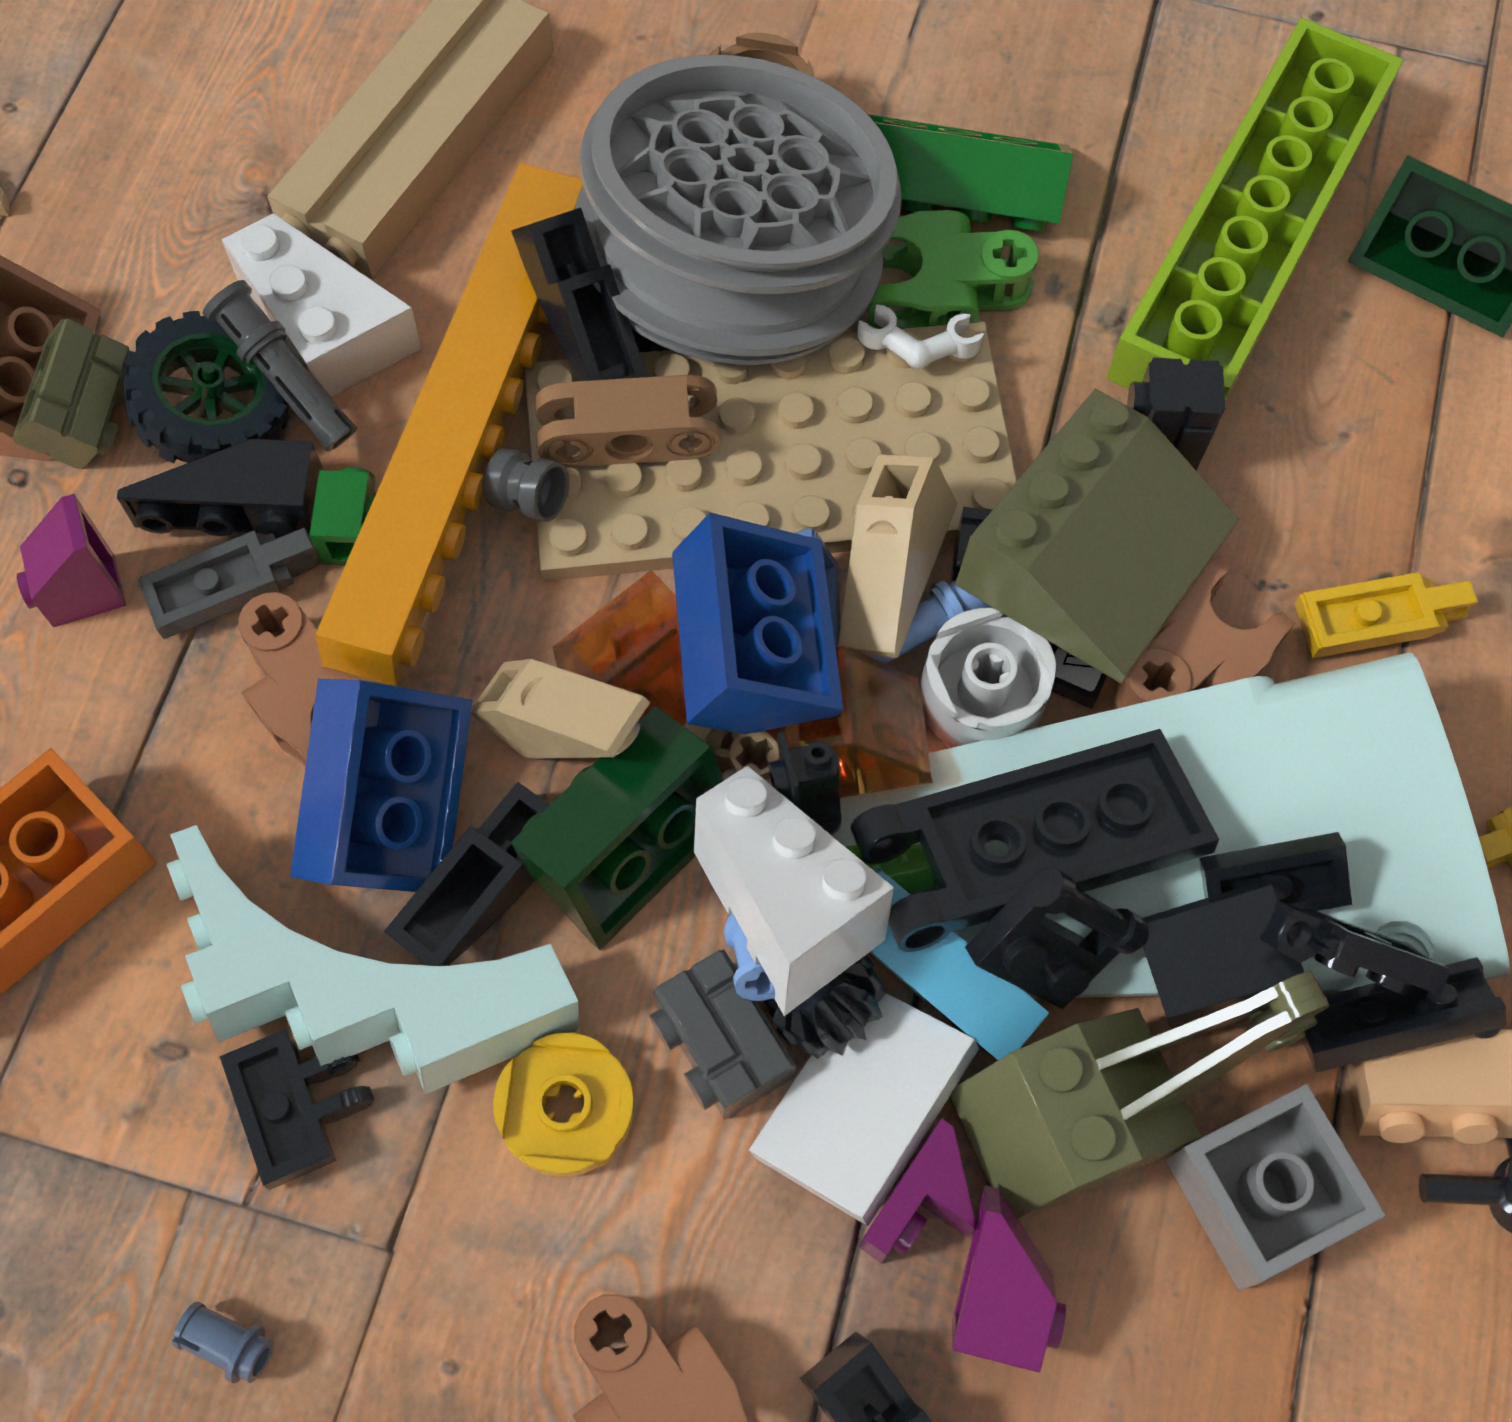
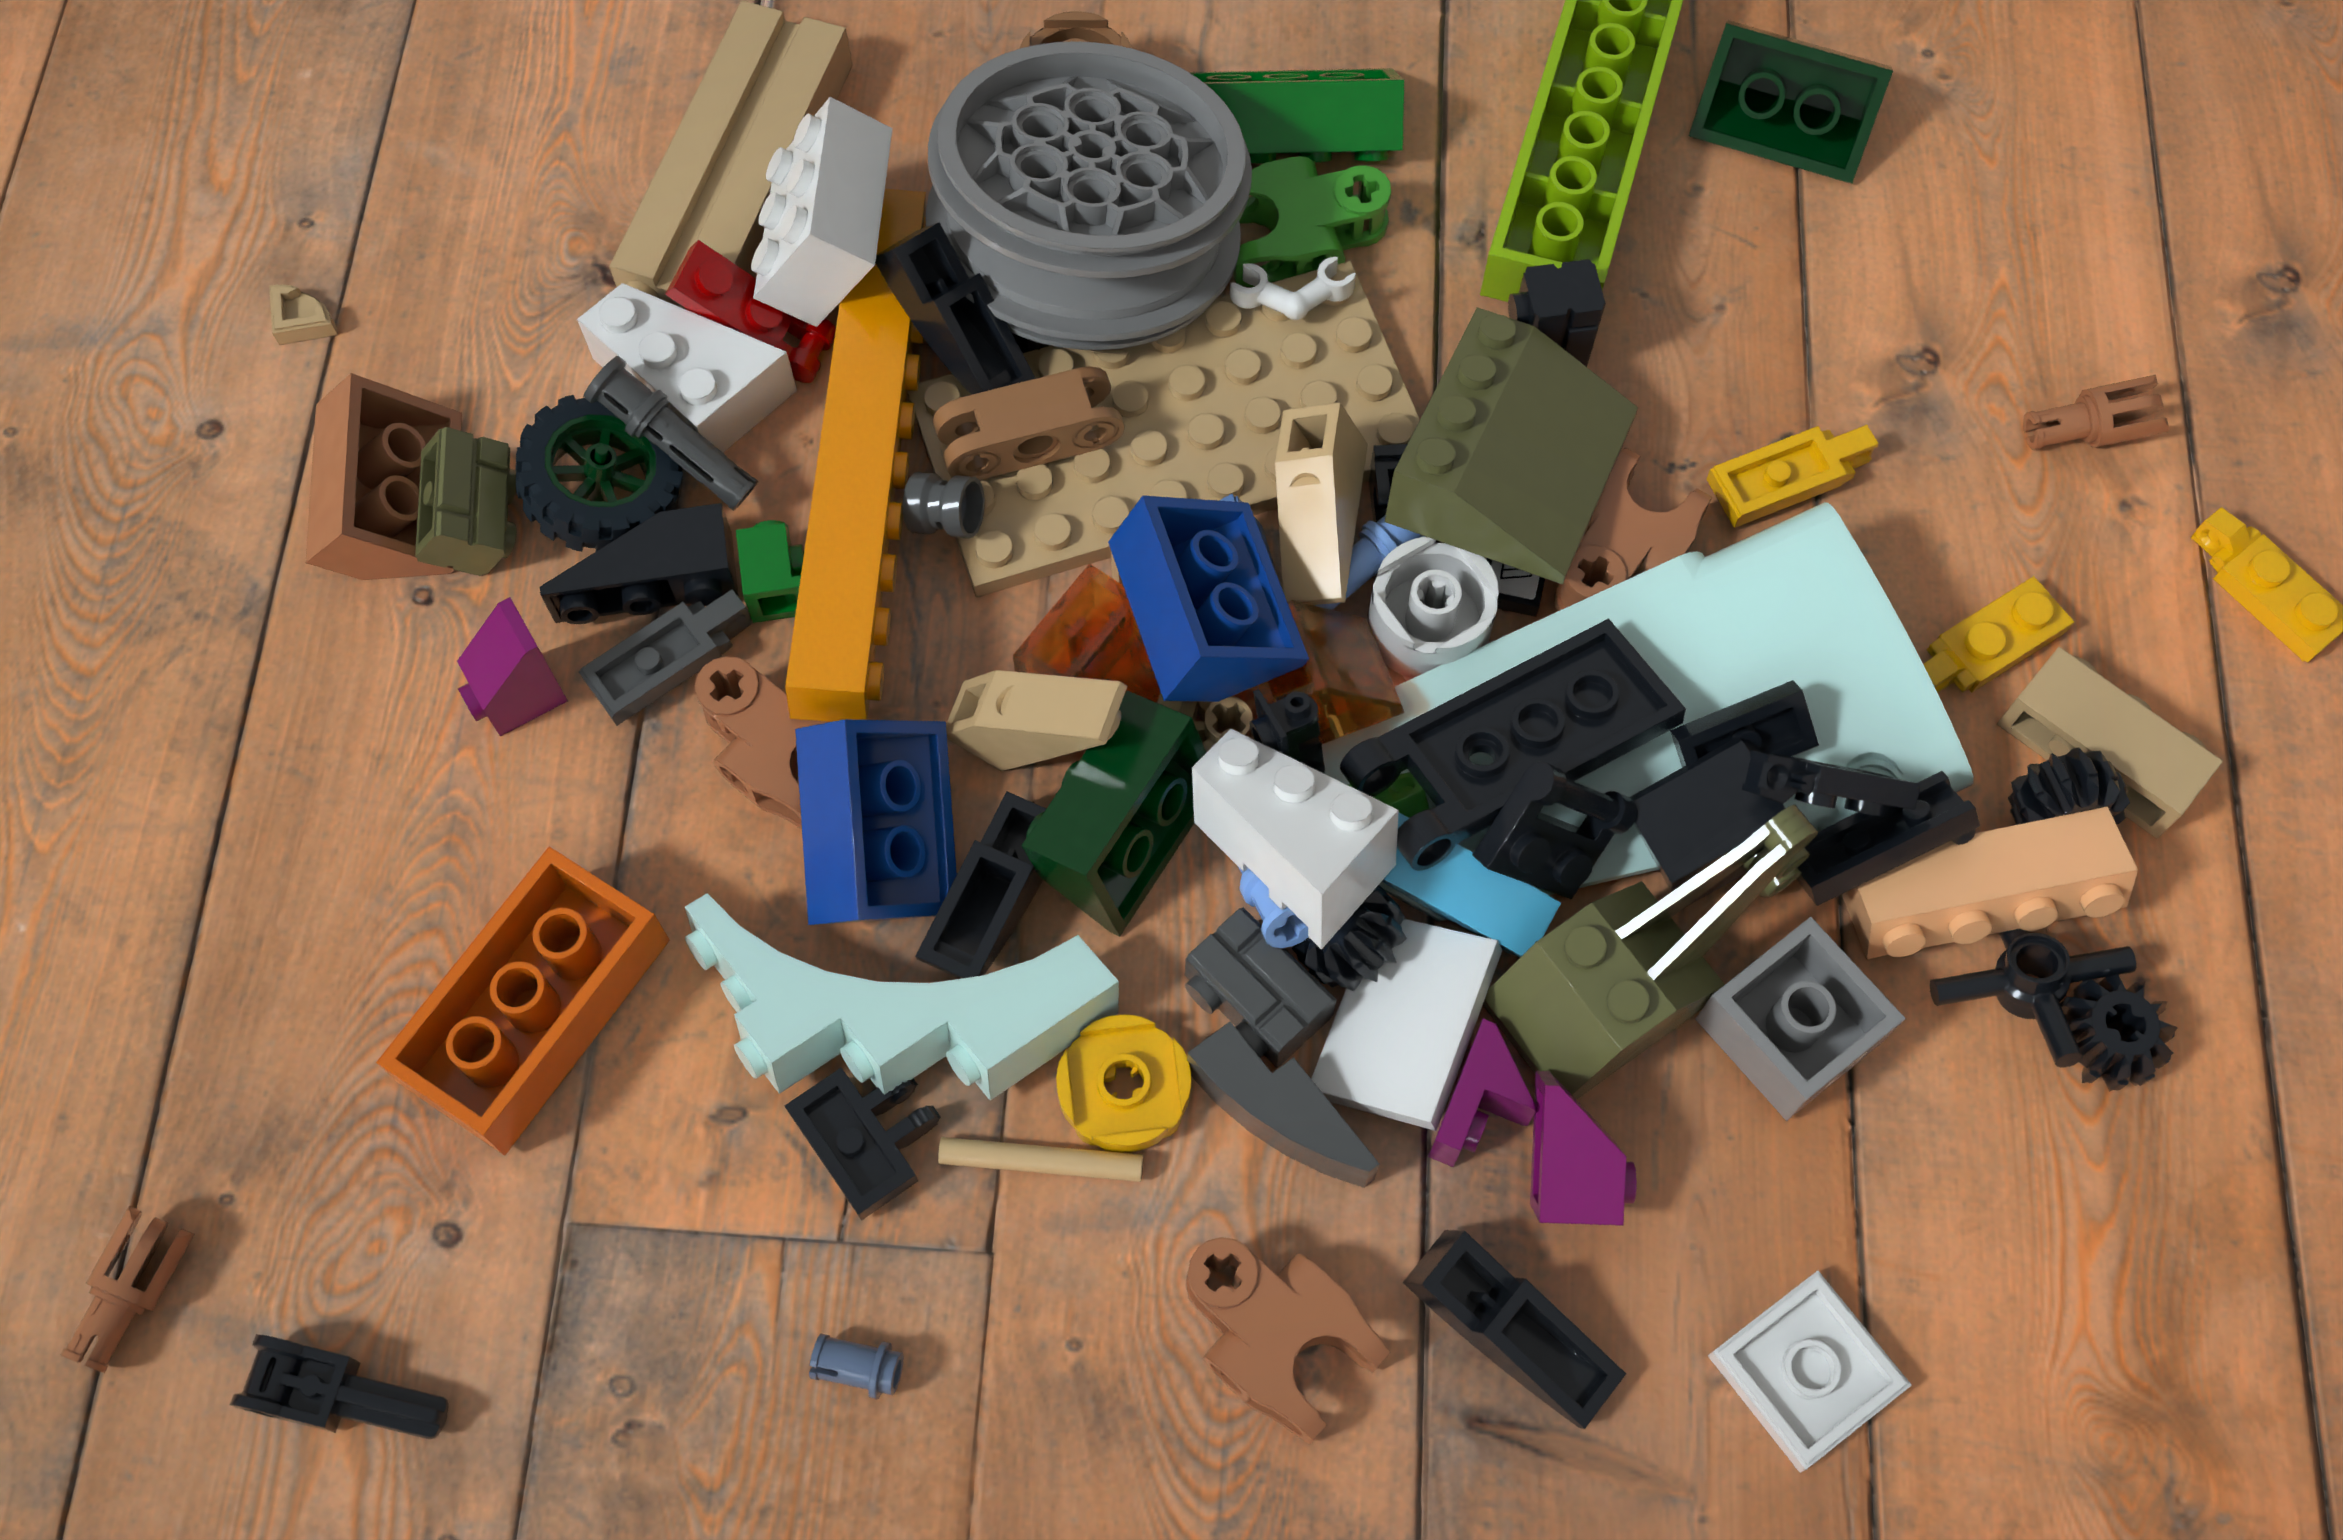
camera: 10 degrees left, 0 degrees up
(382, 253) = (725, 293): none -> red plate
(463, 1165) = (1040, 1159): none -> tan bar
(475, 178) = (822, 212): none -> white brick
(714, 1163) = (1280, 1107): none -> dark grey slope

